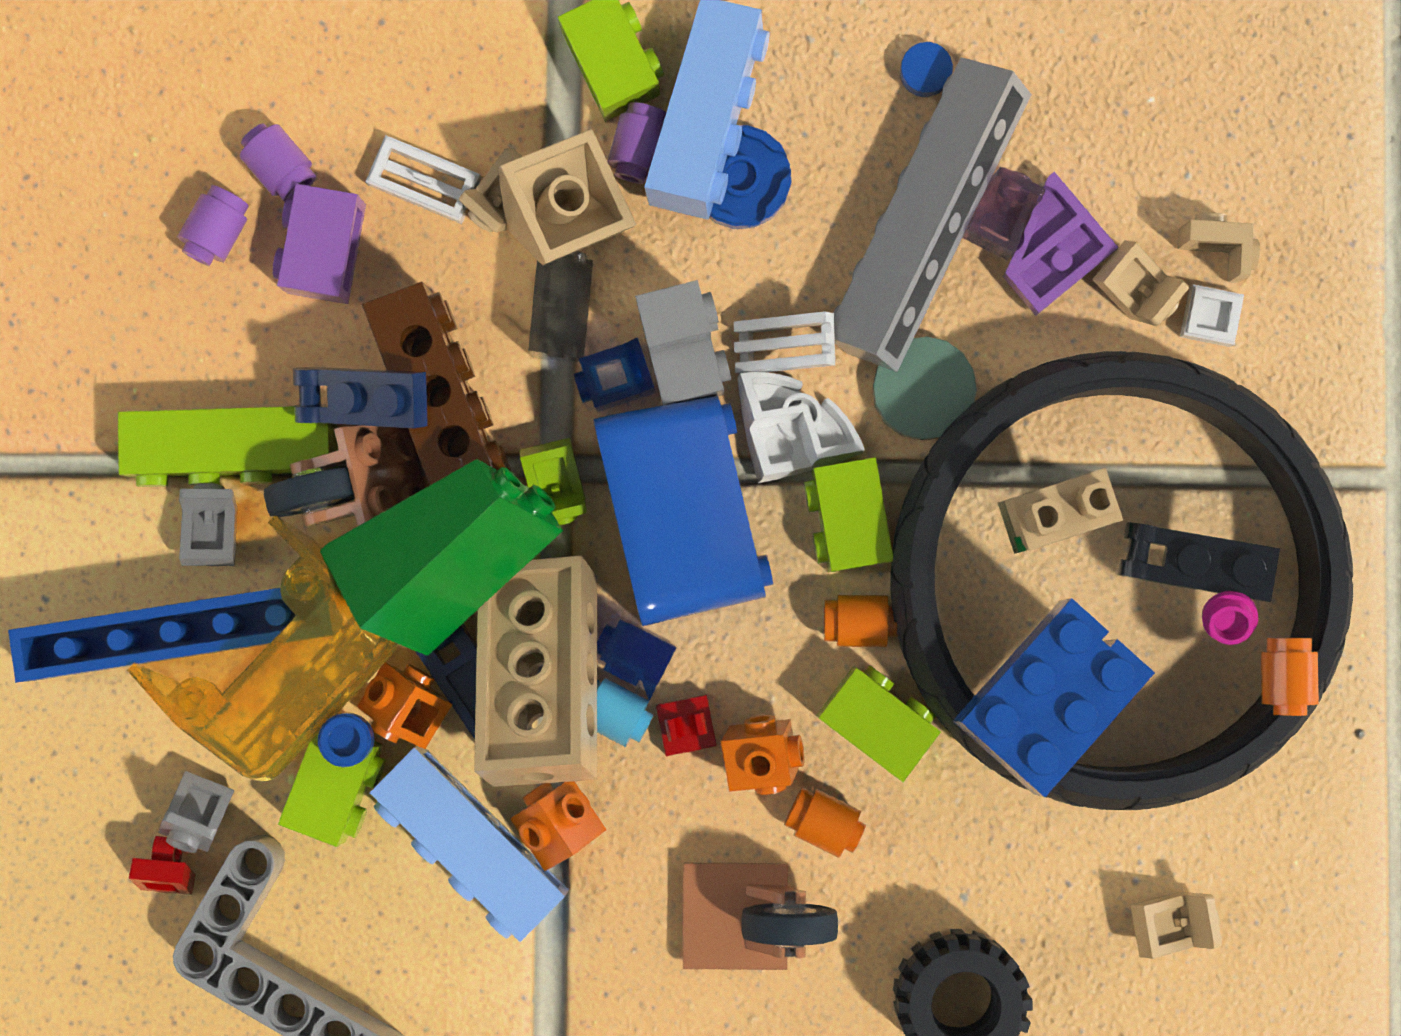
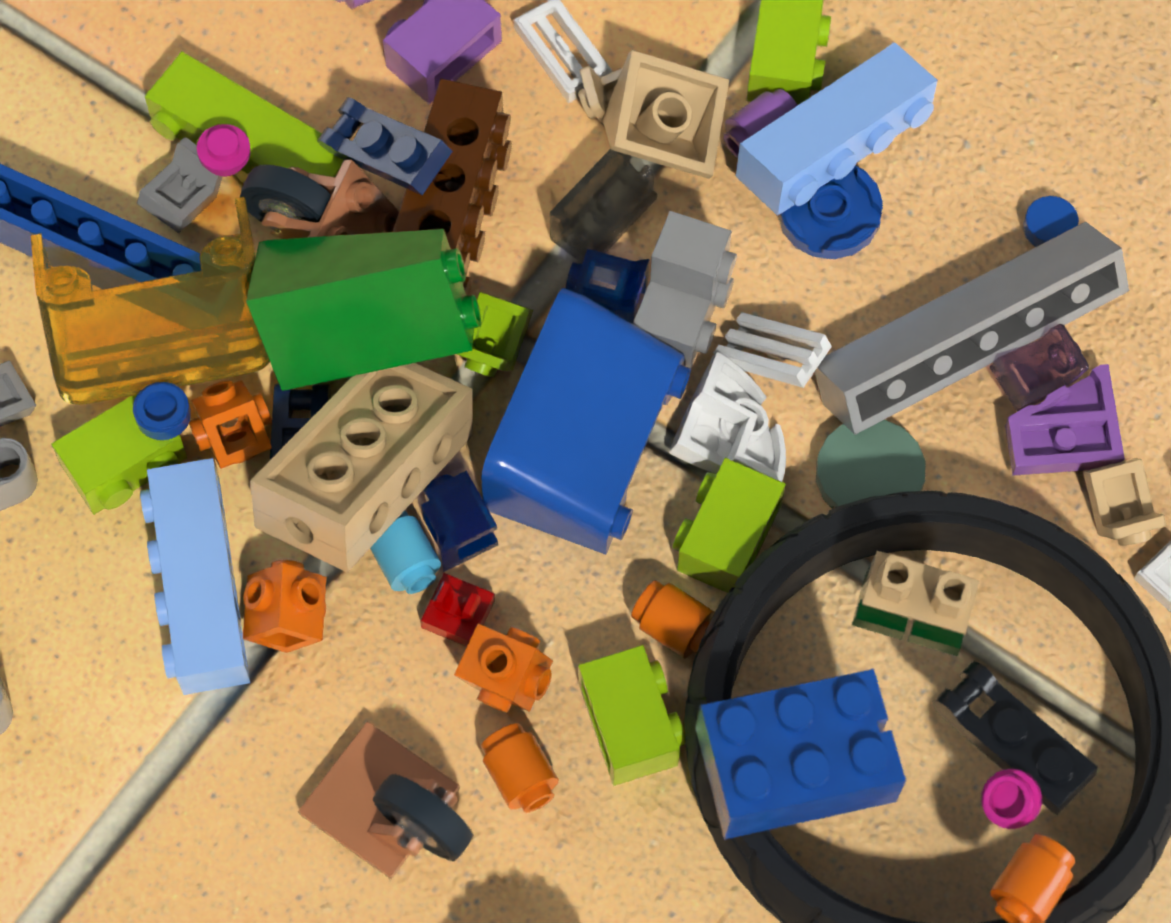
camera: 30 degrees right, 20 degrees down
(224, 482) = (223, 149): none -> dark pink plate

